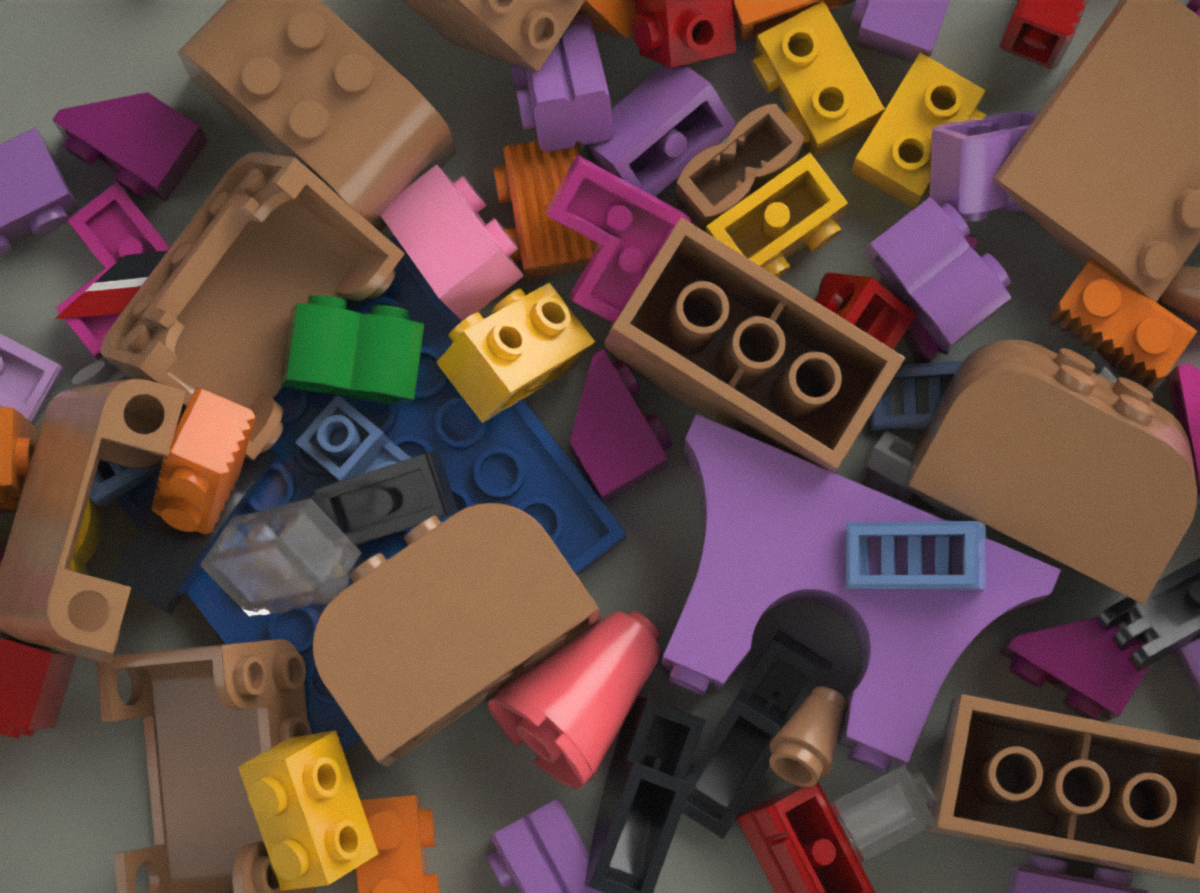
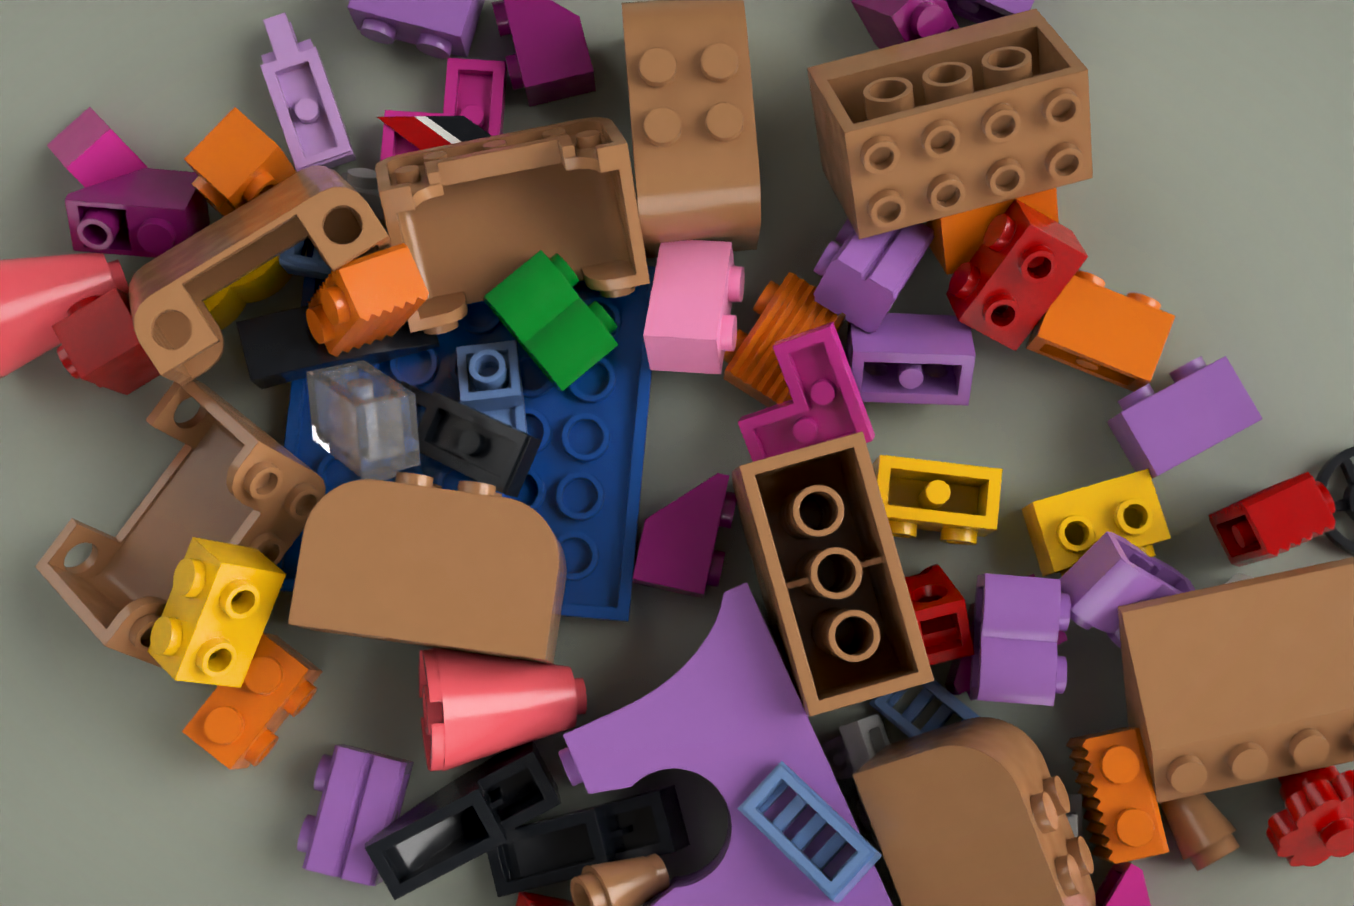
camera: 40 degrees right, 0 degrees up
(513, 350) = (665, 419): yellow brick -> none
(727, 173) = (927, 430): medium nougat brick -> none
(817, 79) = (1055, 422): yellow brick -> none

